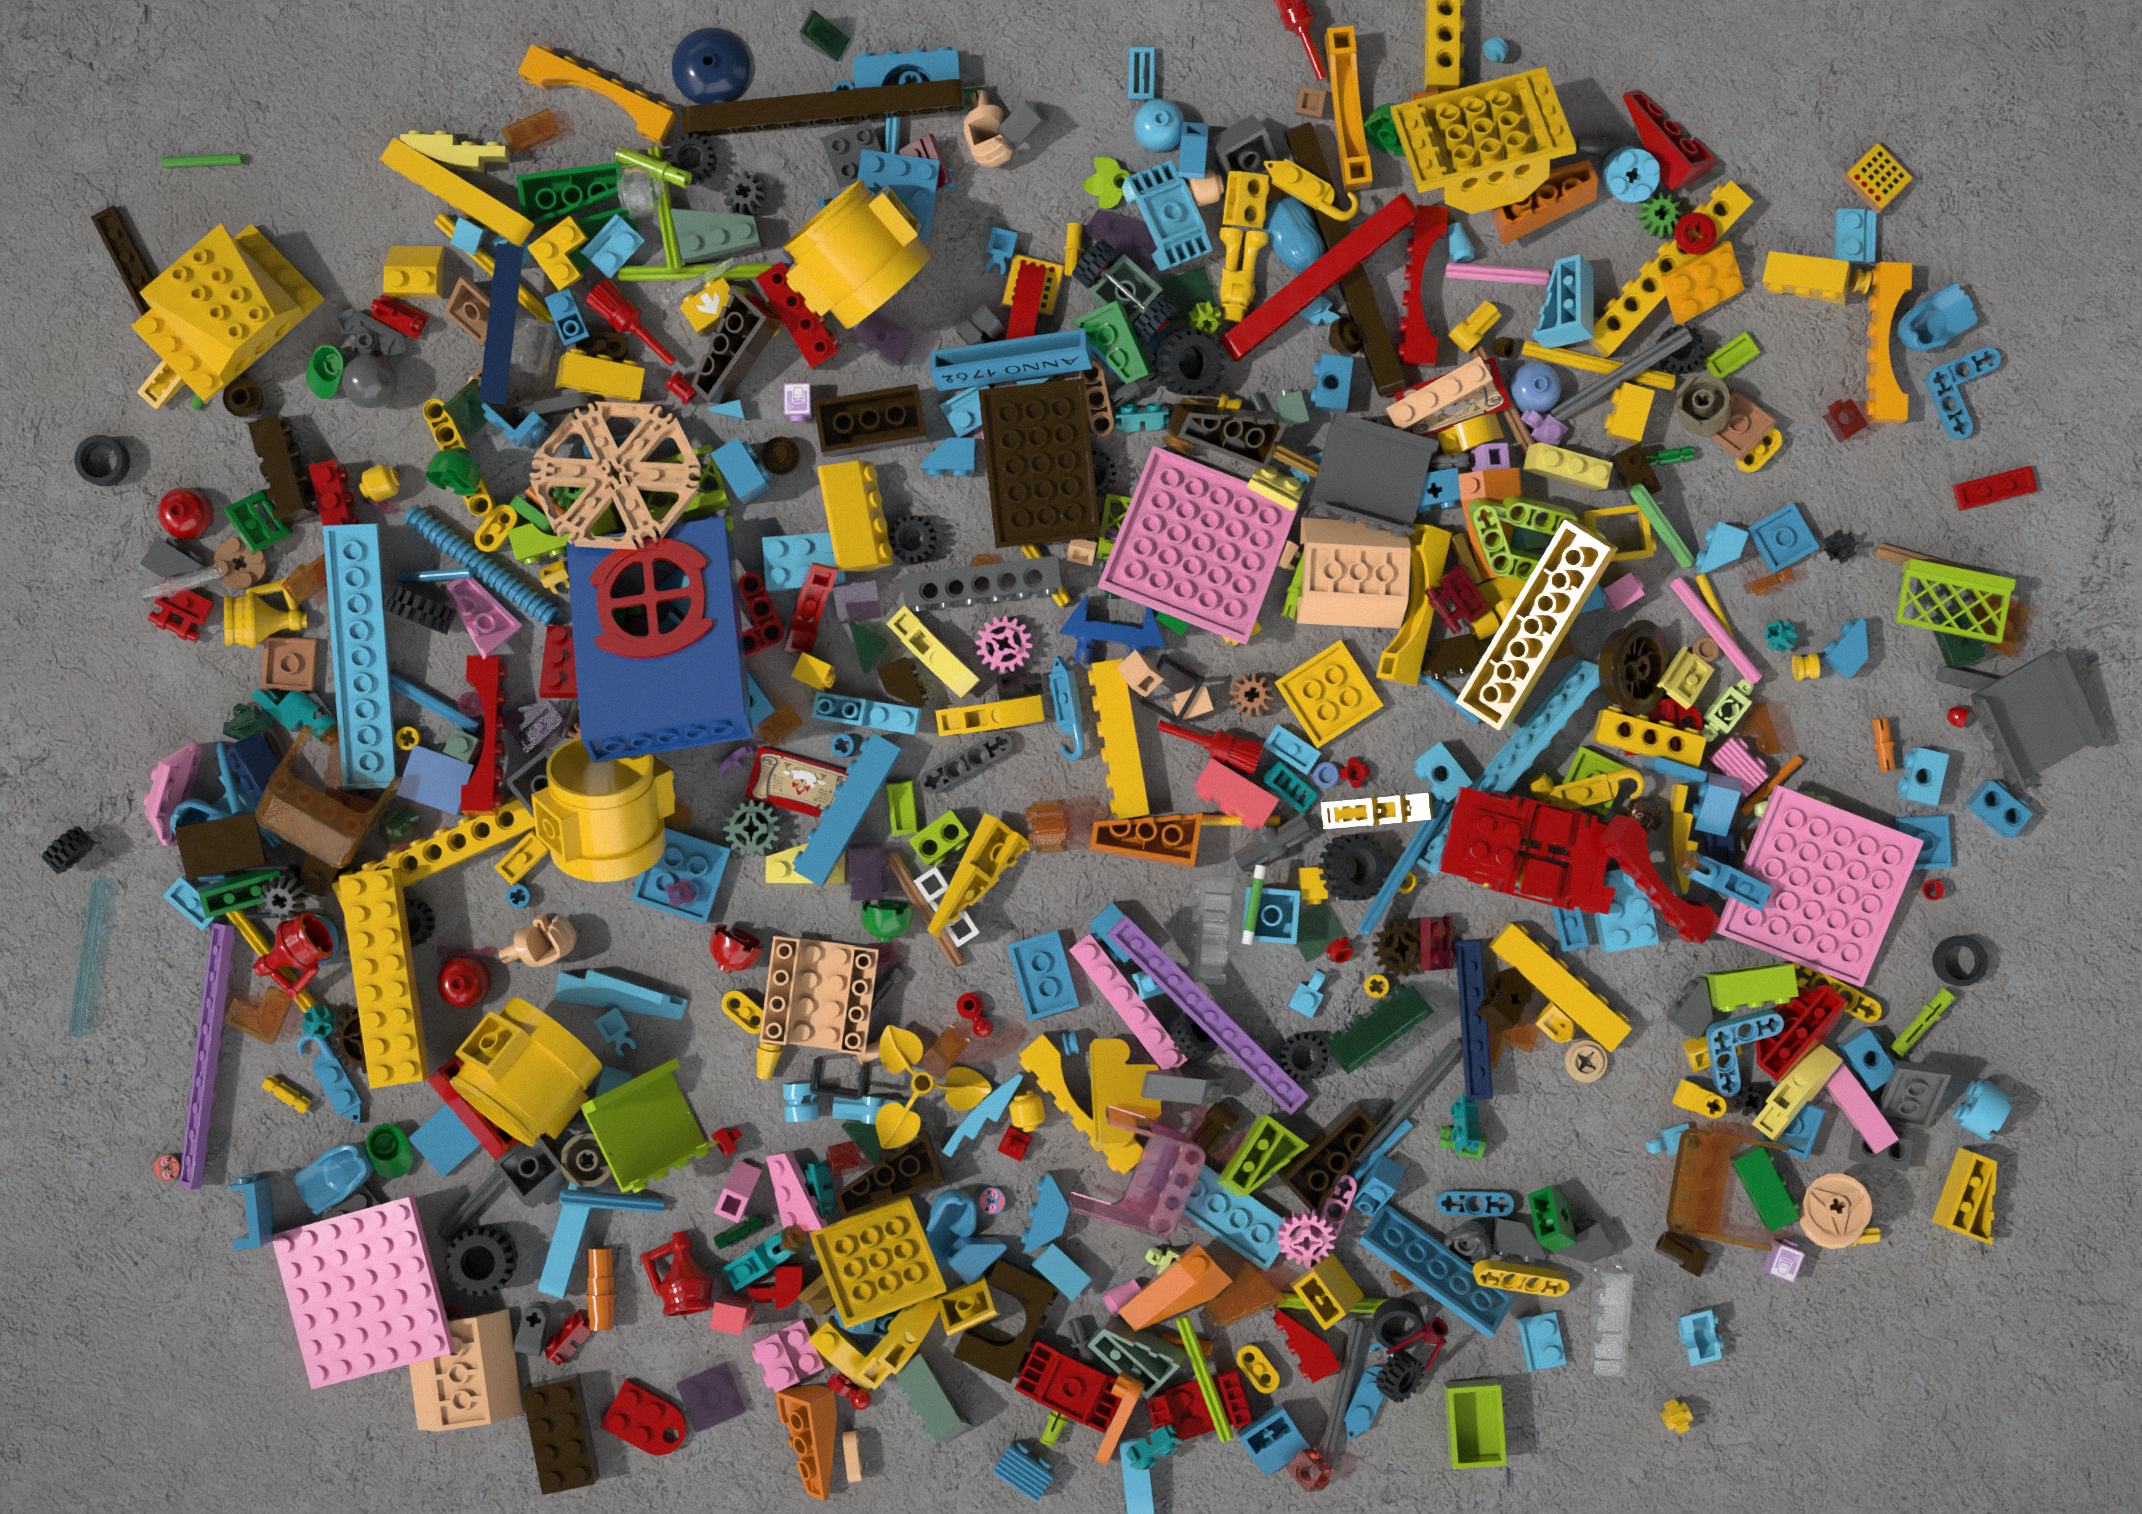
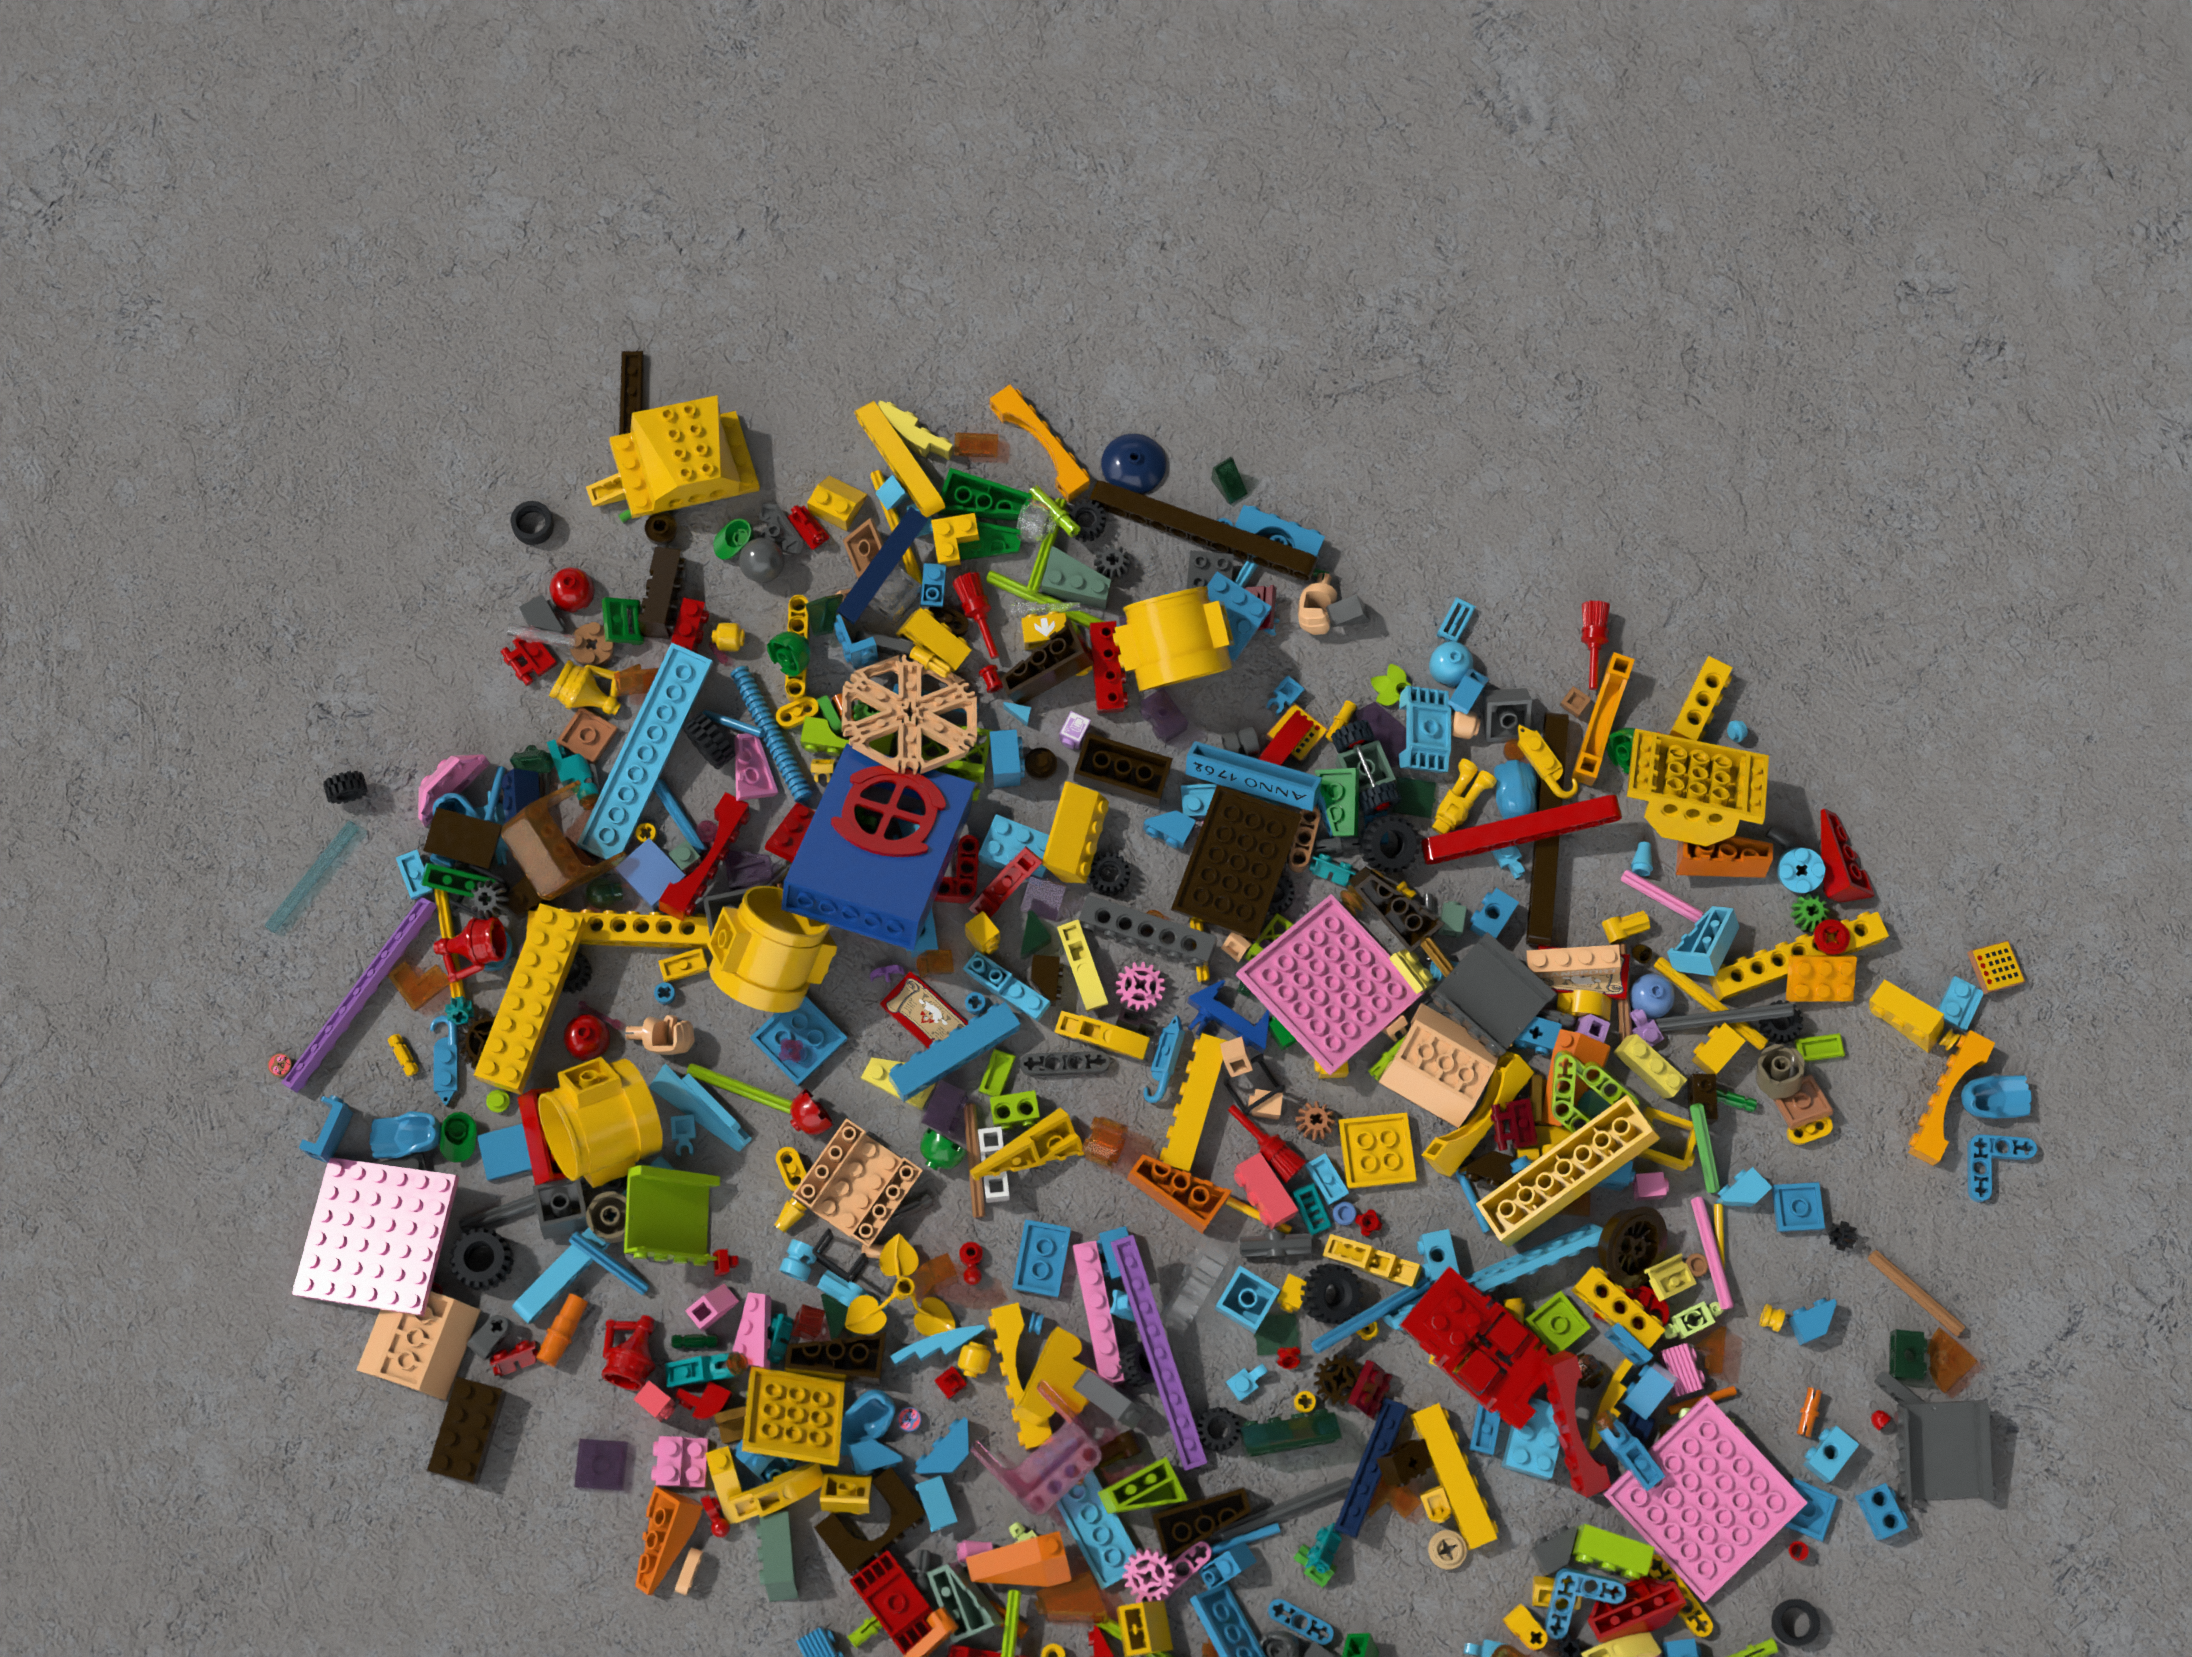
camera: 20 degrees right, 15 degrees down
(202, 160) = (724, 351): bright green bar -> none
(409, 1093) = (497, 1101): none -> lime plate
(607, 404) = (930, 661): none -> yellow axle
(613, 245) = (994, 552): medium azure plate -> none
(642, 1418) = (538, 1454): red plate -> none
(647, 955) = (739, 1088): none -> lime axle
(681, 819) = (820, 995): clear orange tile -> none
(752, 841) = (881, 1035): sand green gear -> none
(890, 956) = (928, 1184): clear pink plate -> none
(1205, 317) = (1421, 814): lime gear -> none
(1239, 198) = (1487, 743): yellow brick -> none
(1253, 906) = (1237, 1281): bright green bar -> none
(1344, 336) = (1519, 883): dark brown plate -> none
(1418, 345) = (1576, 919): red arch -> none
(1483, 638) = (1520, 1164): none -> dark azure plate
(1593, 789) = (1557, 1328): yellow plate -> none
(1763, 585) = (1767, 1235): clear orange plate -> none
(1780, 636) = (1762, 1282): teal gear -> none
(1841, 430) = (1887, 1148): clear red brick -> none
(1952, 578) = (1930, 1307): lime fence -> none
(1994, 488) = (1989, 1253): red tile -> none

